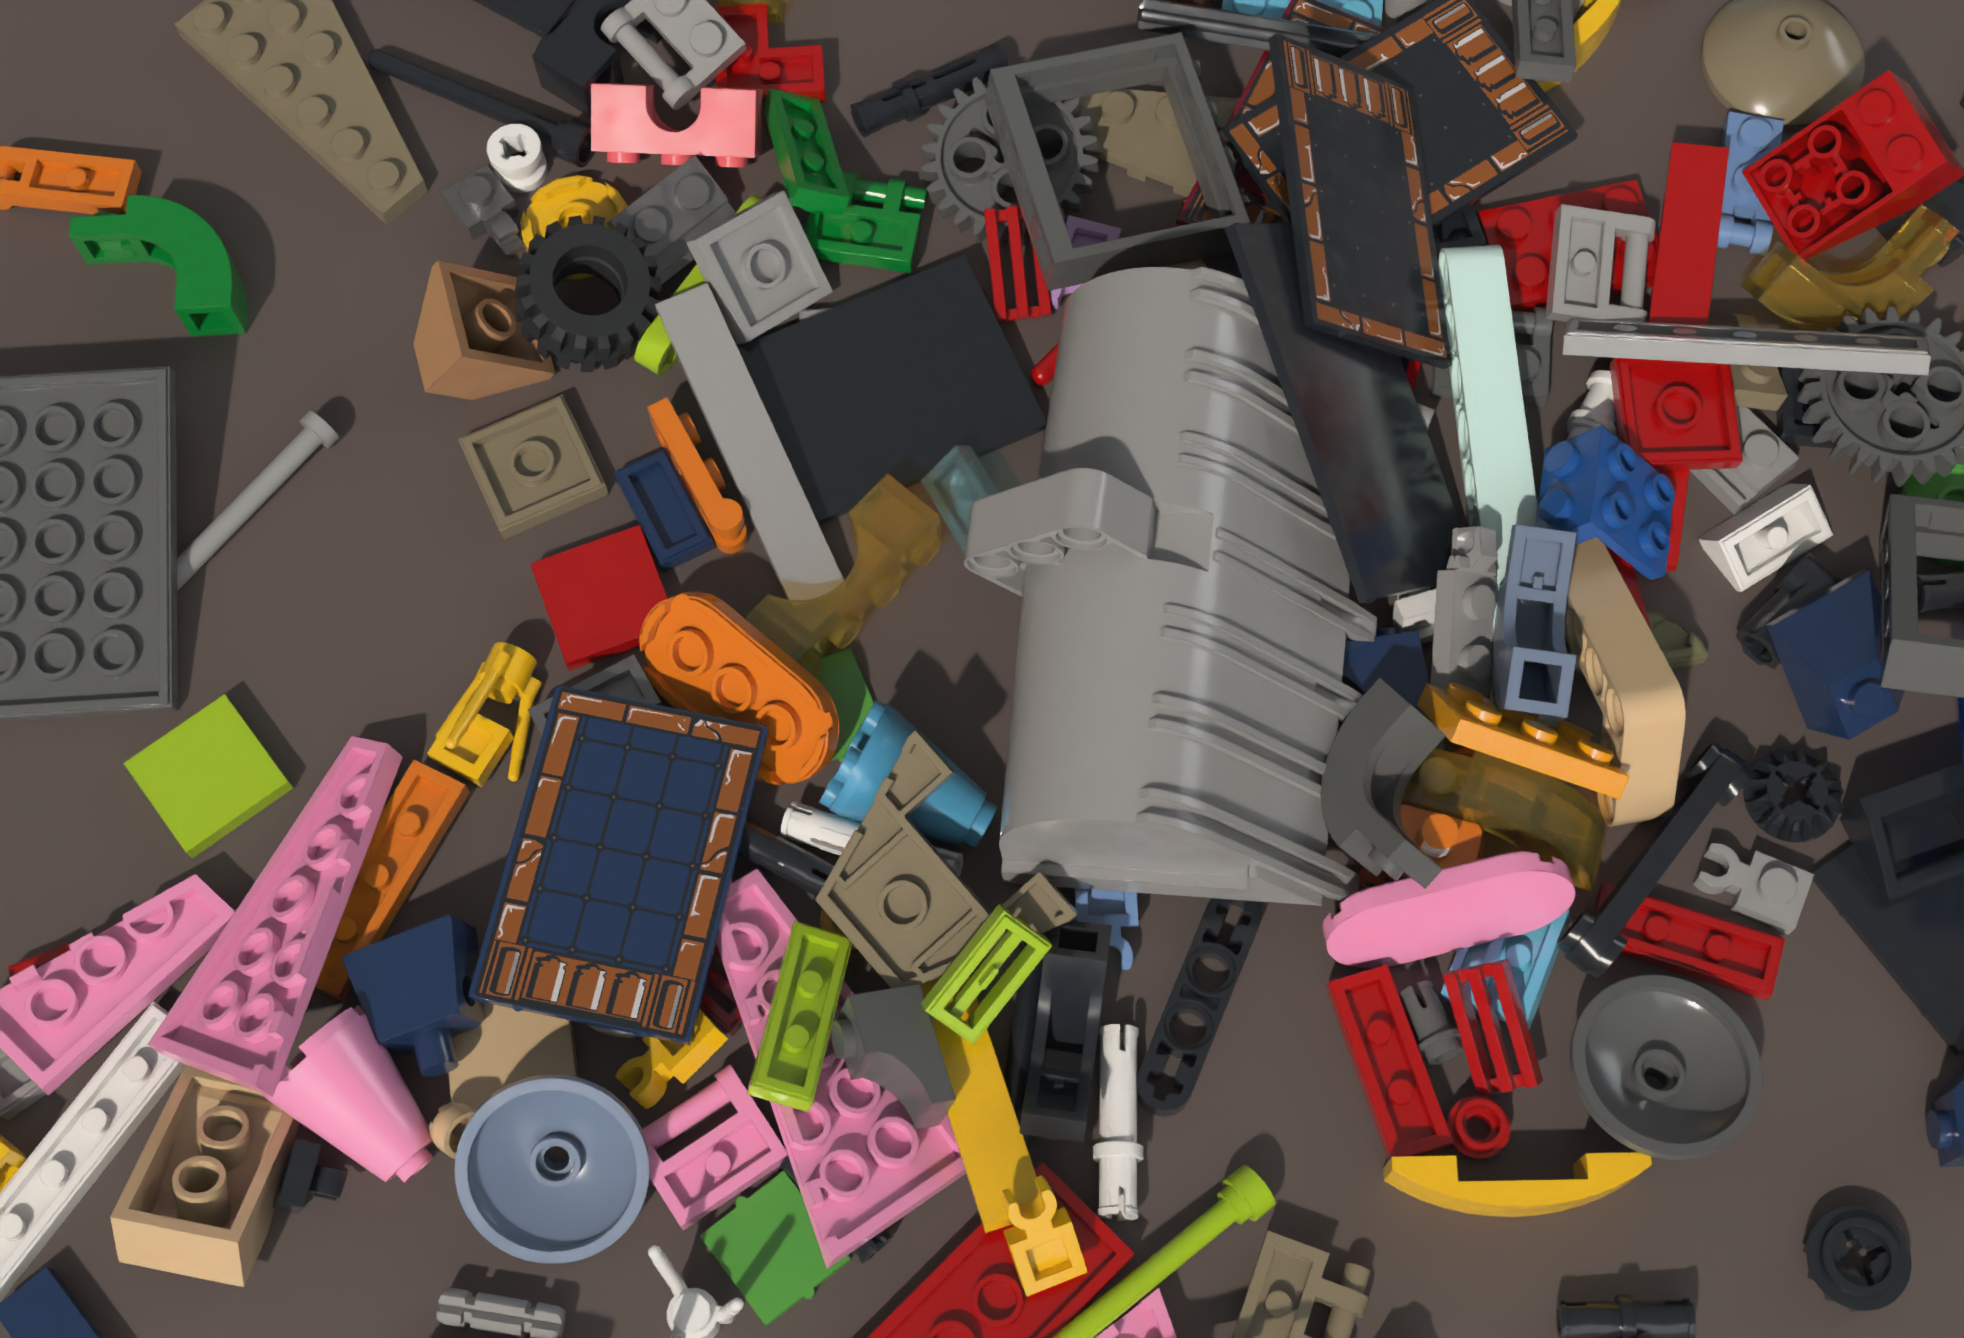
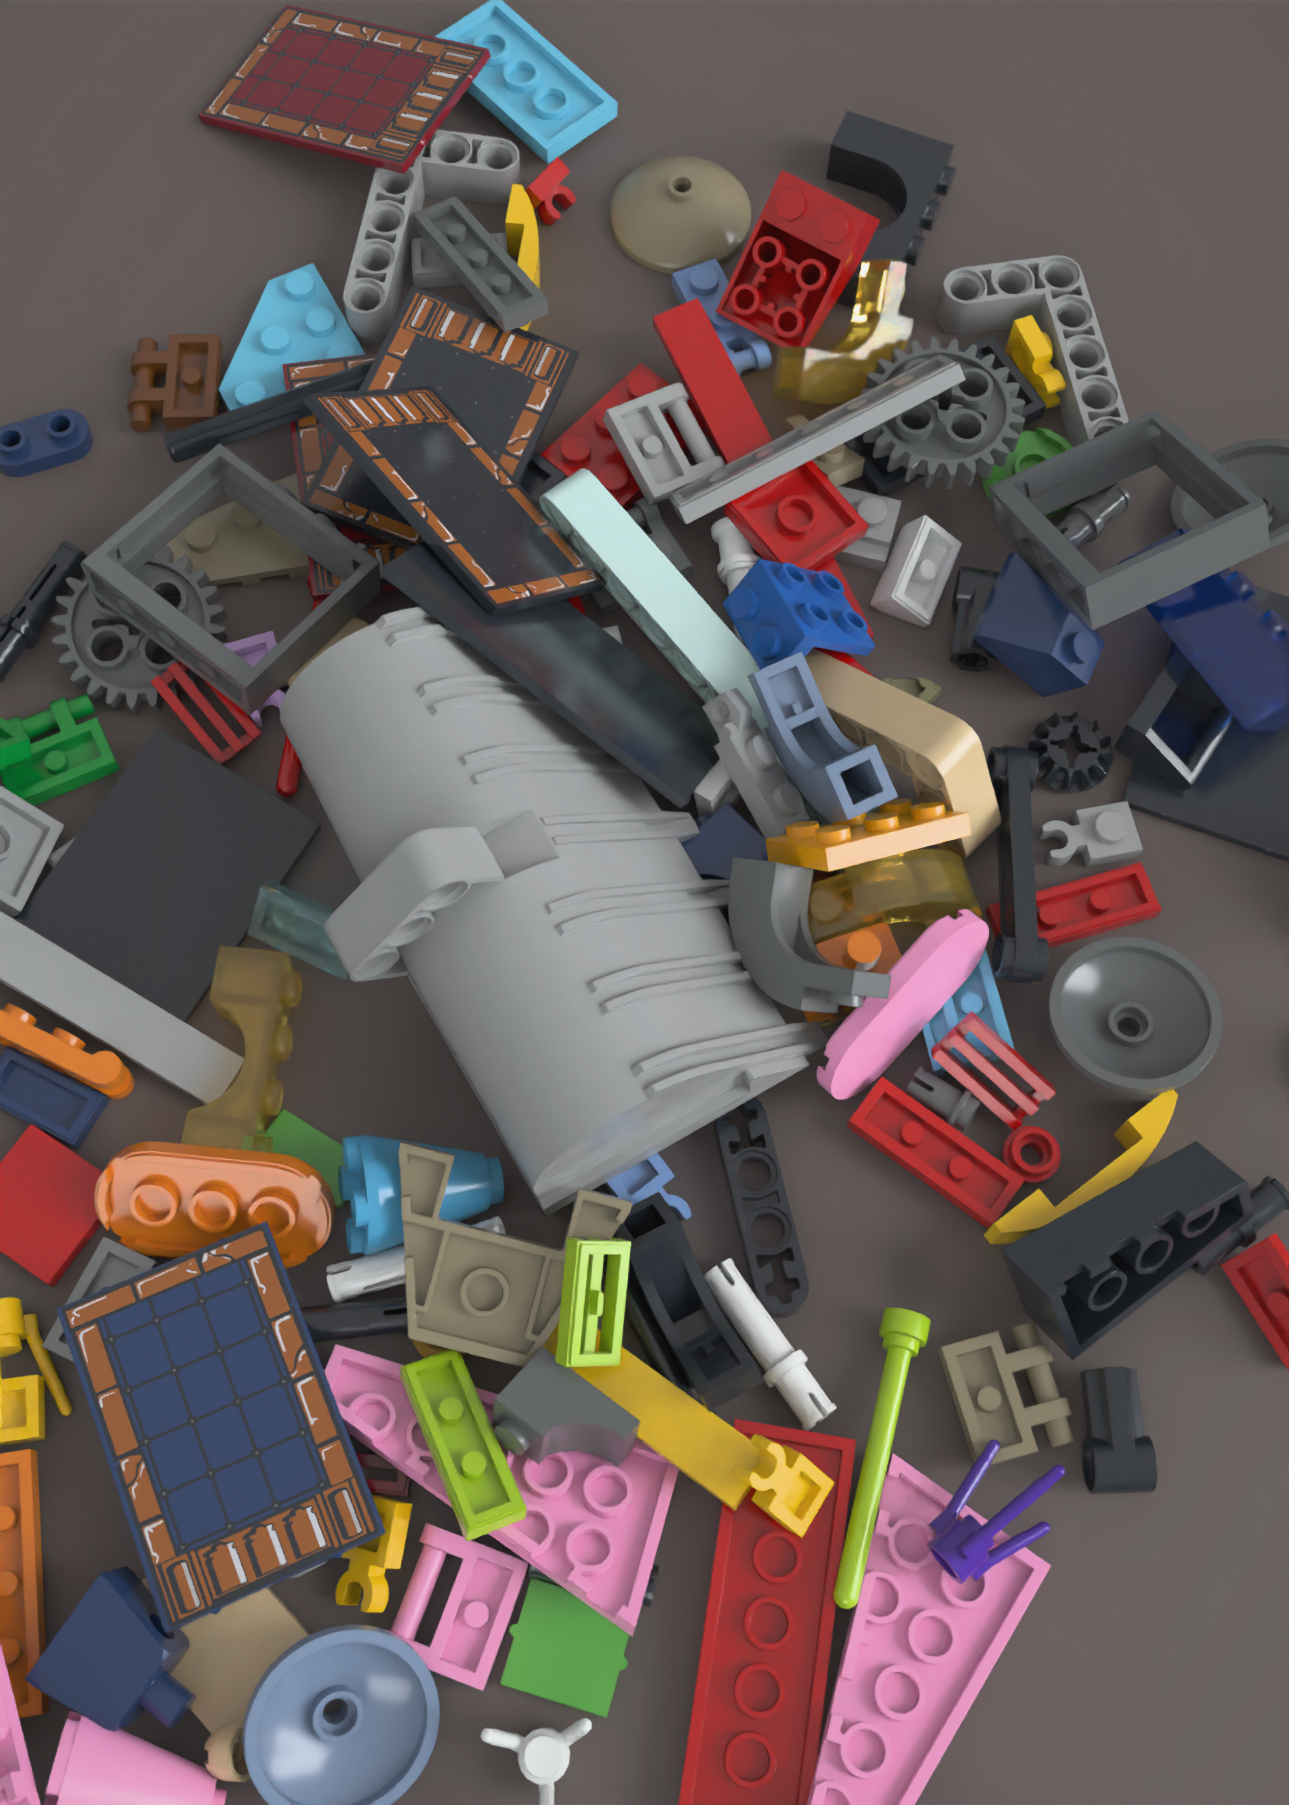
camera: 40 degrees left, 0 degrees up
(1501, 1259) = (1125, 1245): none -> black wedge

